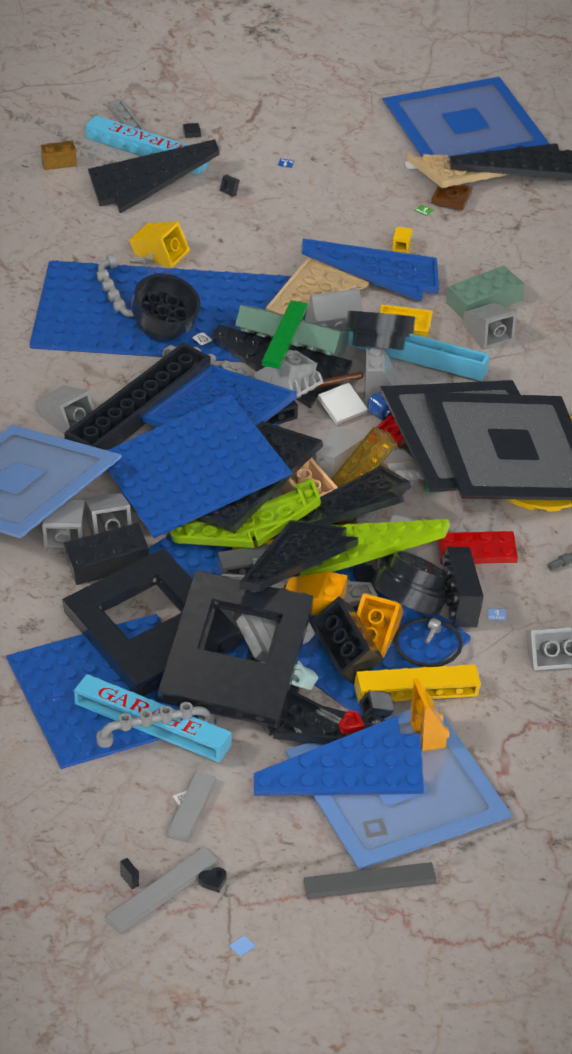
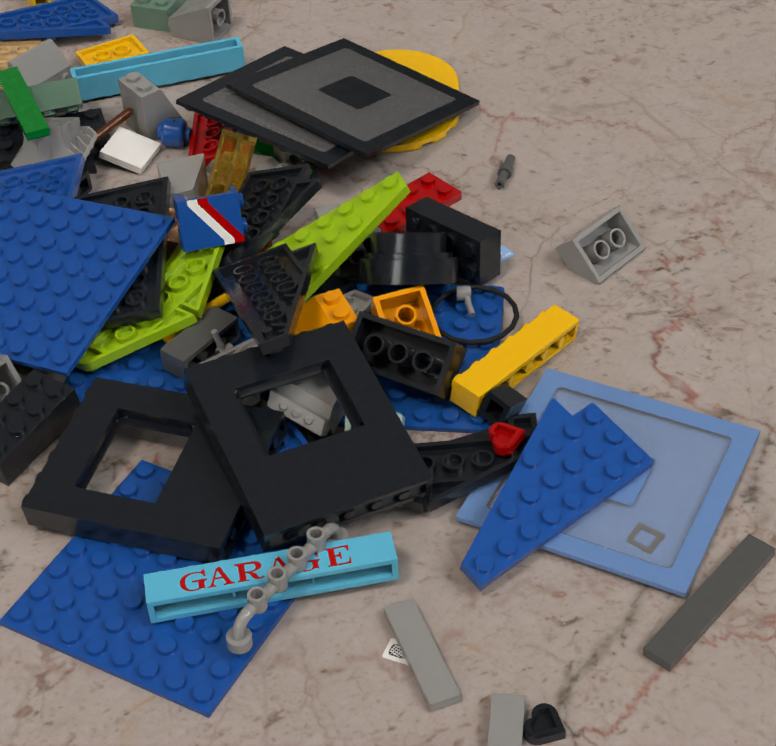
camera: 35 degrees left, 0 degrees up
(311, 486) = (210, 220): none -> panel
(379, 329) = (115, 54): black wheel -> none
(427, 720) = (579, 378): light orange slope -> none

